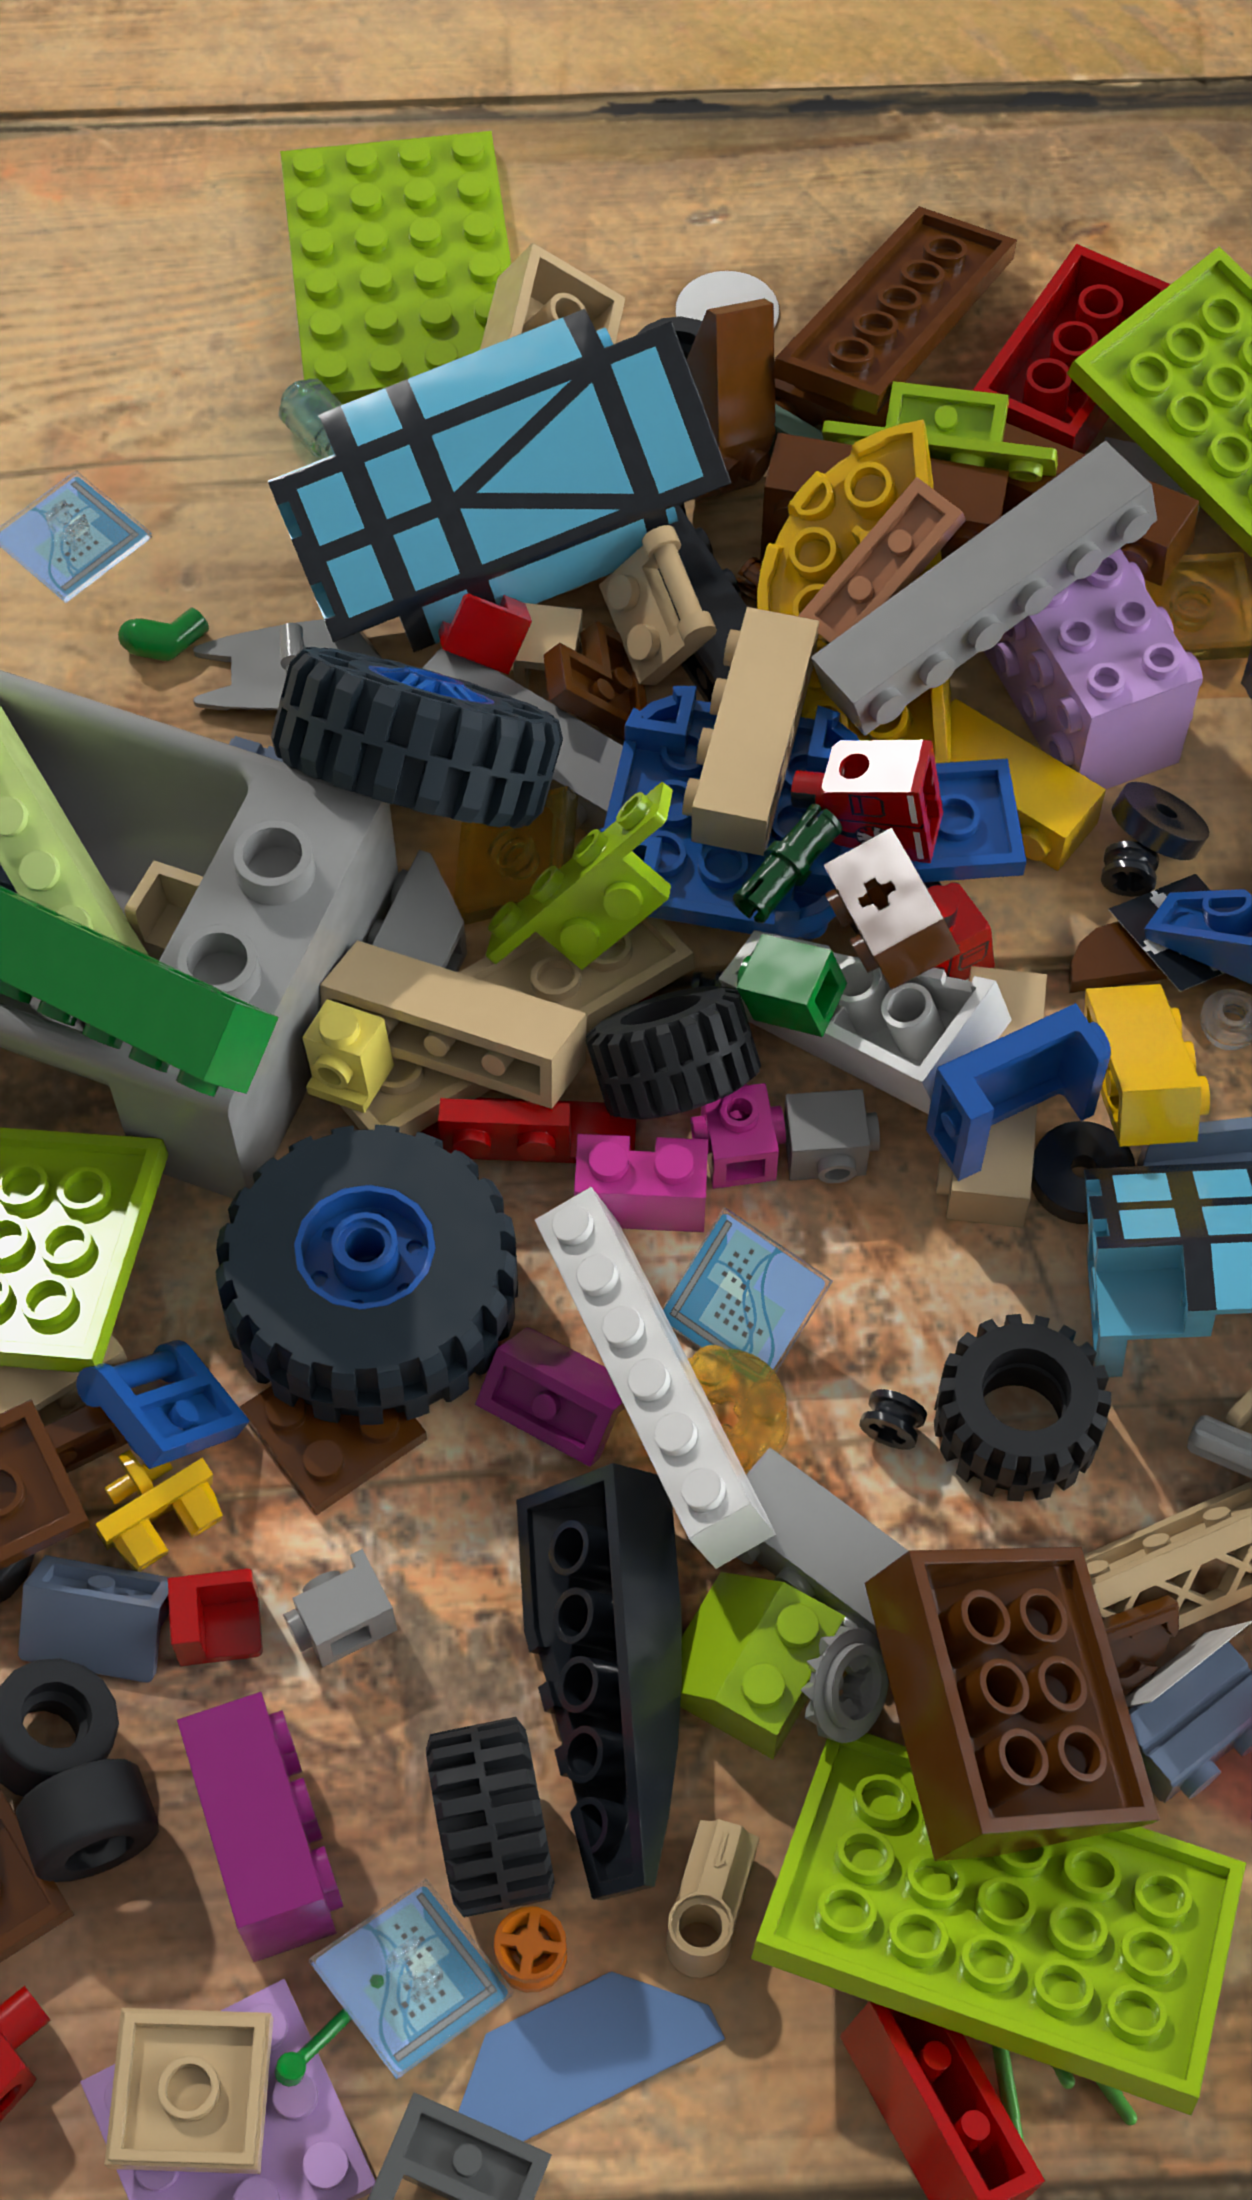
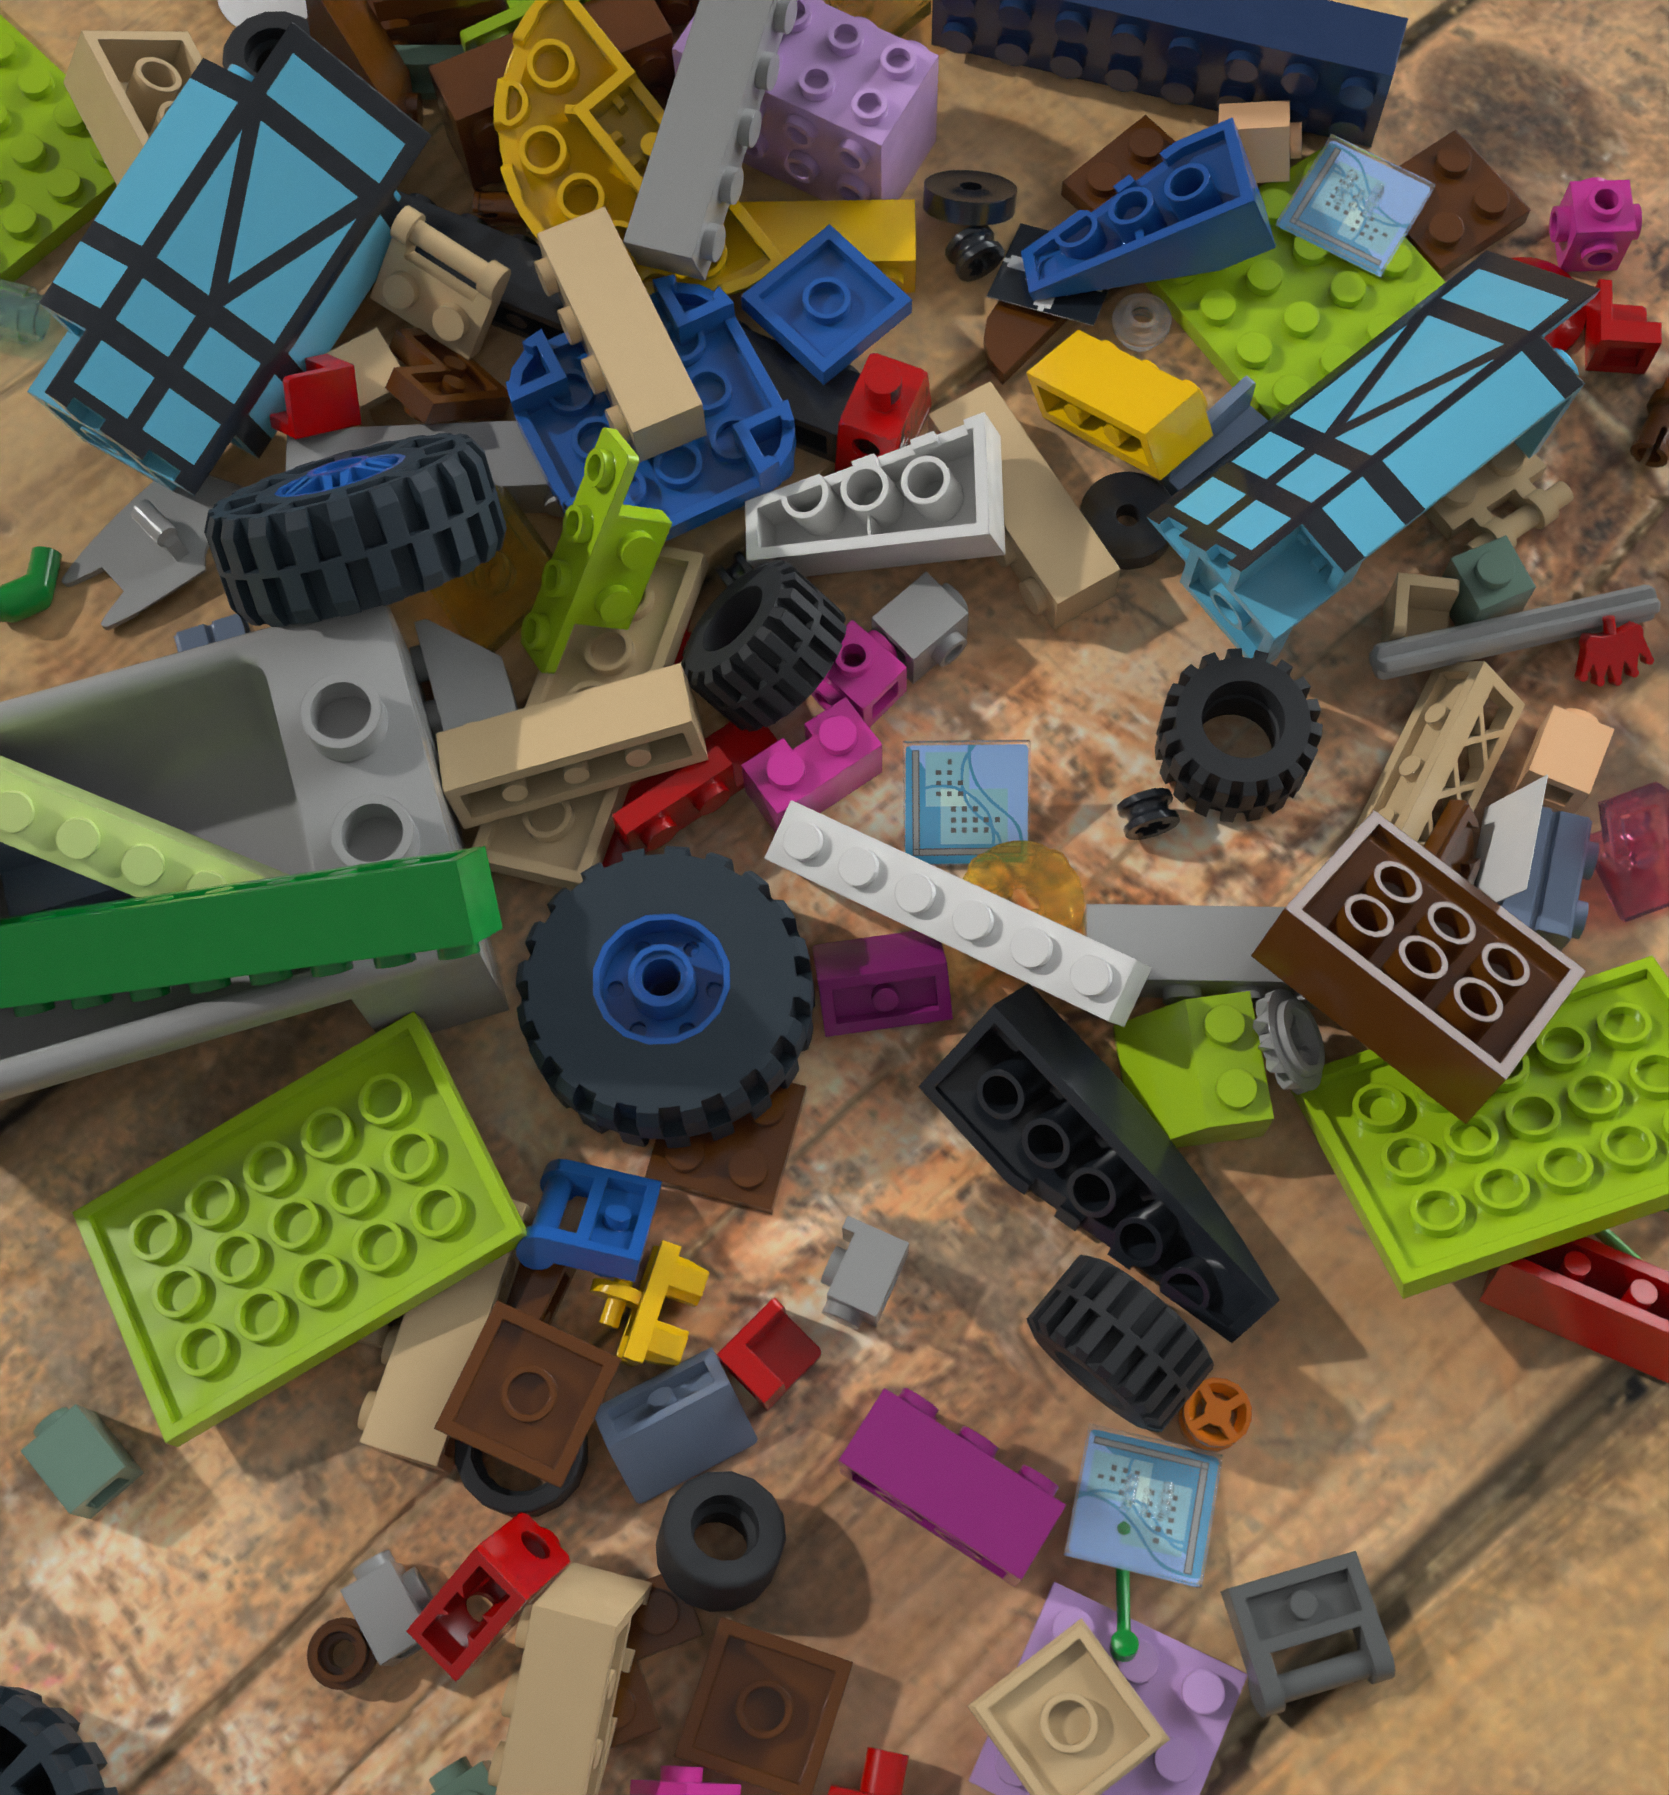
camera: 35 degrees left, 10 degrees up
(87, 1820) = (813, 1587): black tyre -> none
(160, 904) = (264, 819): tan panel -> none
(347, 1055) = (511, 831): light yellow brick -> none
(582, 2052) = (1304, 1461): medium blue sticker -> none
(711, 1895) = (1309, 1268): tan piece -> none
(787, 863) = (743, 428): dark green pin -> none
(791, 984) = (821, 526): green brick -> none
(878, 789) = (767, 324): red torso -> none
(885, 559) = (619, 122): nougat plate -> none
(891, 909) = (890, 410): brick -> none
(1010, 1075) = (1036, 534): blue panel -> none

